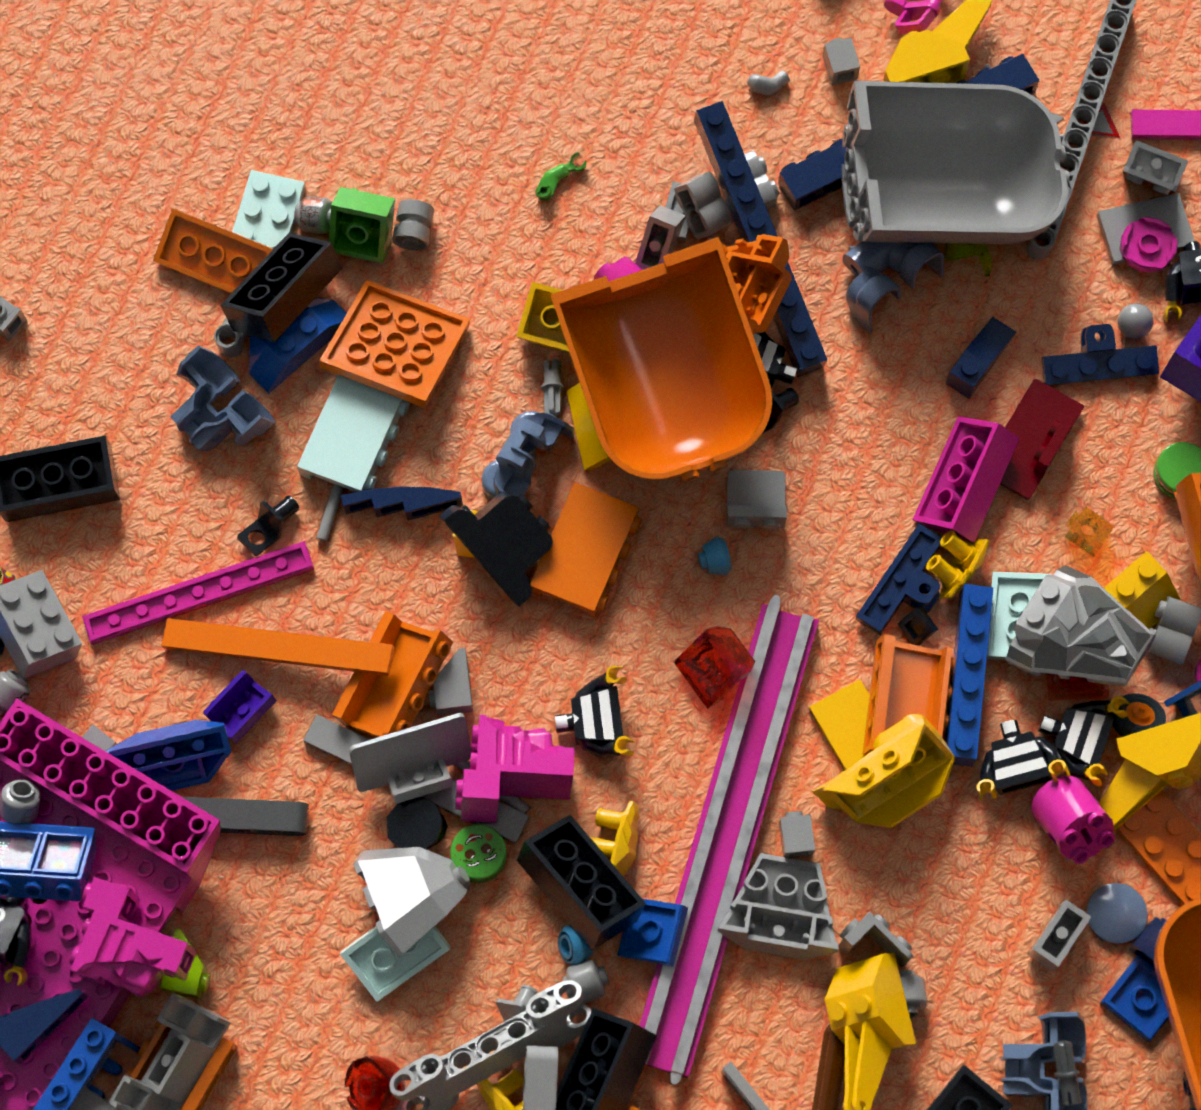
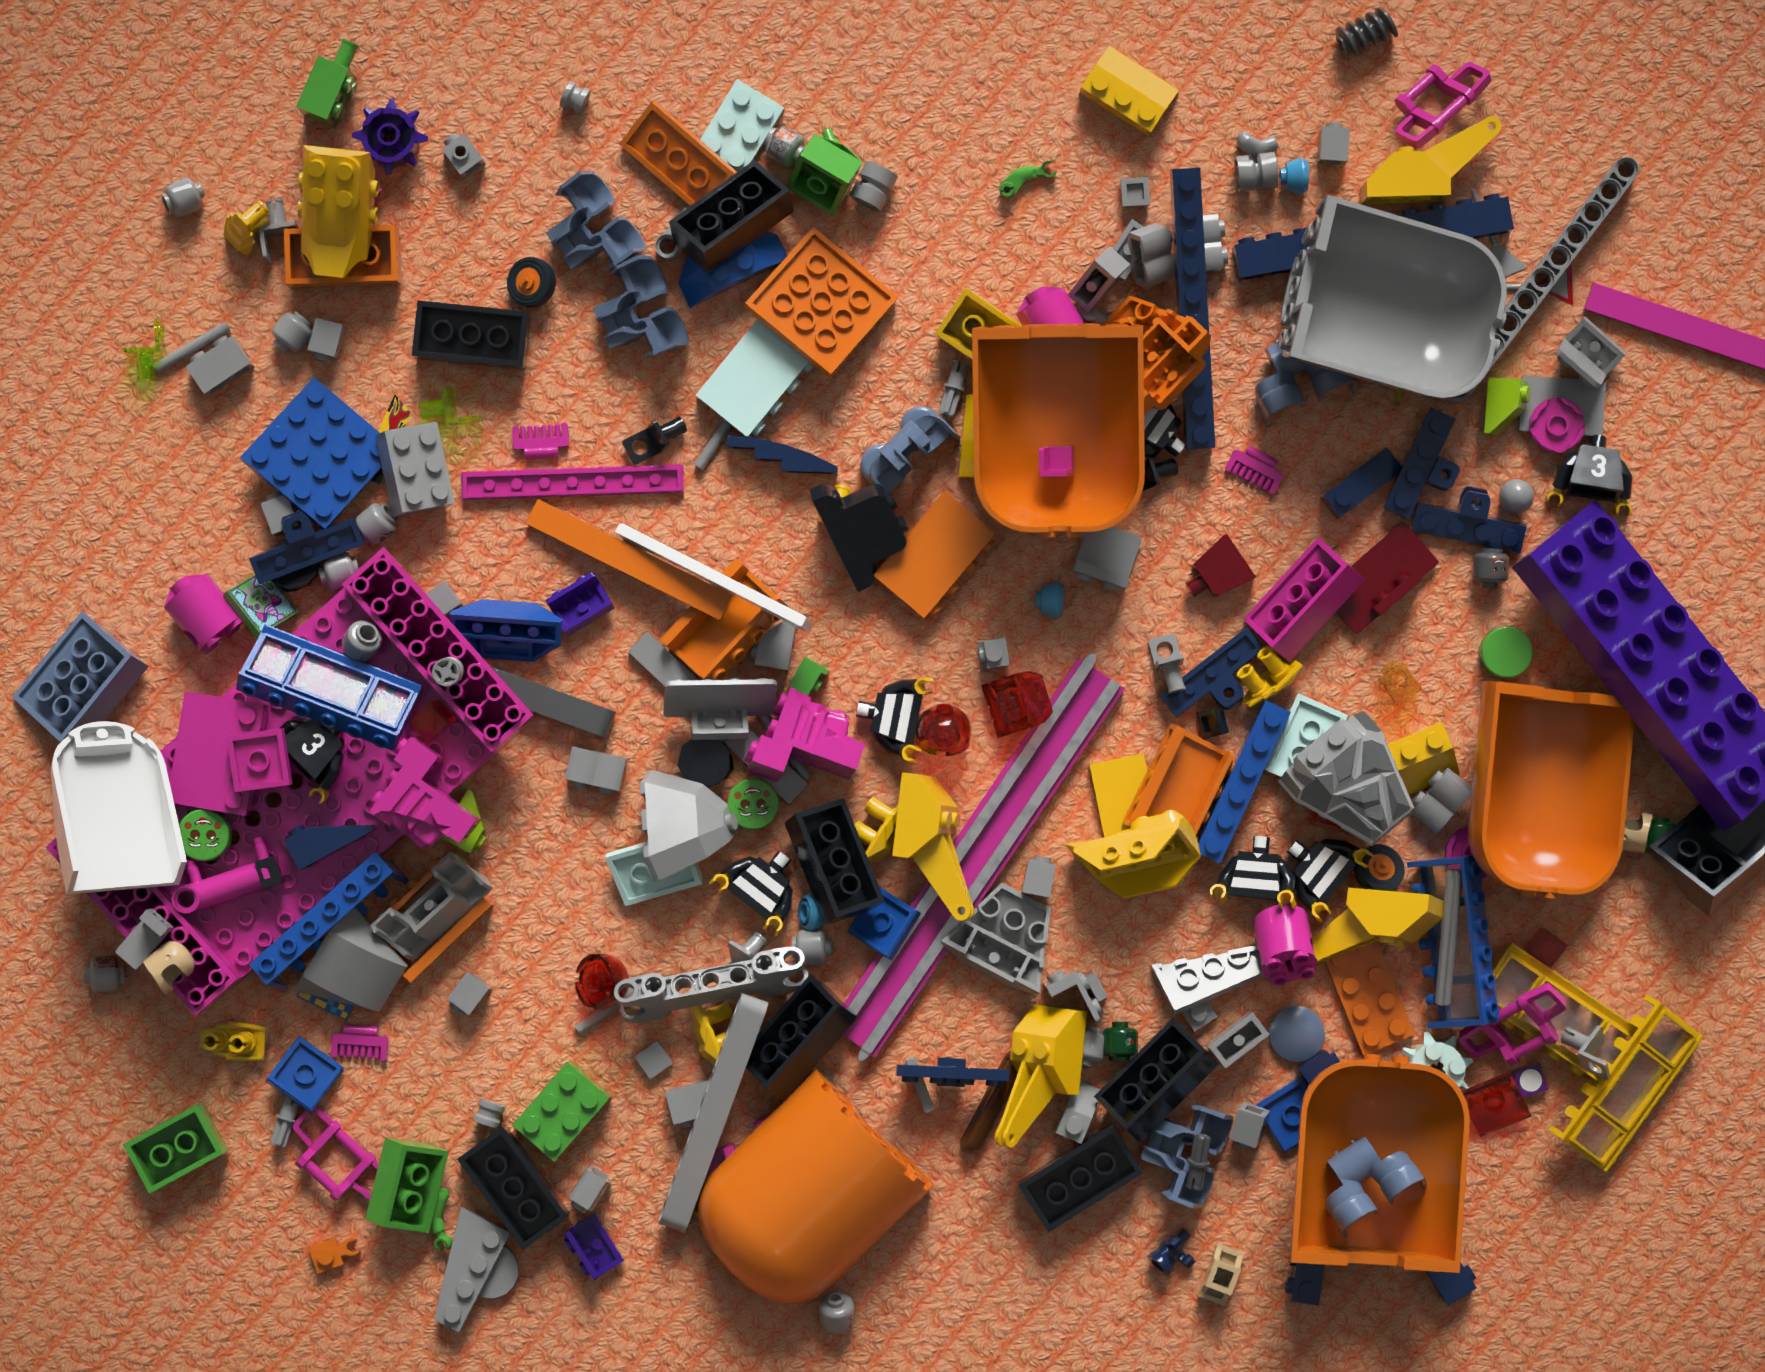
camera: 15 degrees right, 15 degrees up
(50, 557) = (447, 407): none -> clear neon green bracket
(97, 231) = (575, 97): none -> light grey wheel
(102, 412) = (531, 282): none -> black wheel
(110, 798) = (445, 676): none -> light grey wheel
(116, 861) = (433, 720): none -> clear red brick
(129, 355) = (591, 198): none -> sand blue piece
(159, 566) = (543, 446): none -> dark pink piece
(304, 869) = (596, 769): none -> light grey brick
(373, 631) = (714, 577): none -> white tile
(495, 704) = (807, 677): none -> bright green brick
(511, 935) = (760, 886): none -> torso
(629, 73) = (1128, 91): none -> yellow slope
(649, 712) = (943, 730): none -> clear red cylinder
(667, 158) = (1135, 192): none -> light grey plate
(667, 827) = (925, 833): none -> yellow slope
(676, 413) = (1056, 461): none -> dark pink panel
(676, 627) = (993, 653): none -> light grey brick
(776, 1064) = (952, 1073): none -> dark blue plate
(777, 104) = (1256, 172): none -> light grey wheel
(815, 98) = (1295, 176): none -> dark azure cone
(854, 581) = (1170, 664): none -> light grey bracket
(873, 368) = (1260, 463): none -> dark pink piece
(873, 477) = (1220, 569): none -> dark red torso
(895, 927) = (1095, 986): none -> light grey tile
(921, 1068) = (1078, 1113): none -> light grey slope
(939, 977) = (1120, 1041): none -> dark green head
(991, 1003) = (1156, 1080): none -> black brick
(998, 888) = (1205, 978): none -> wing
(1007, 923) = (1199, 1015): none -> light grey plate
(1035, 320) = (1423, 465): none -> dark blue plate
(1091, 238) = (1504, 403): none -> lime slope
(1104, 1022) = (1249, 1125): none -> light grey brick
(1136, 393) = (1490, 567): none -> dark grey head

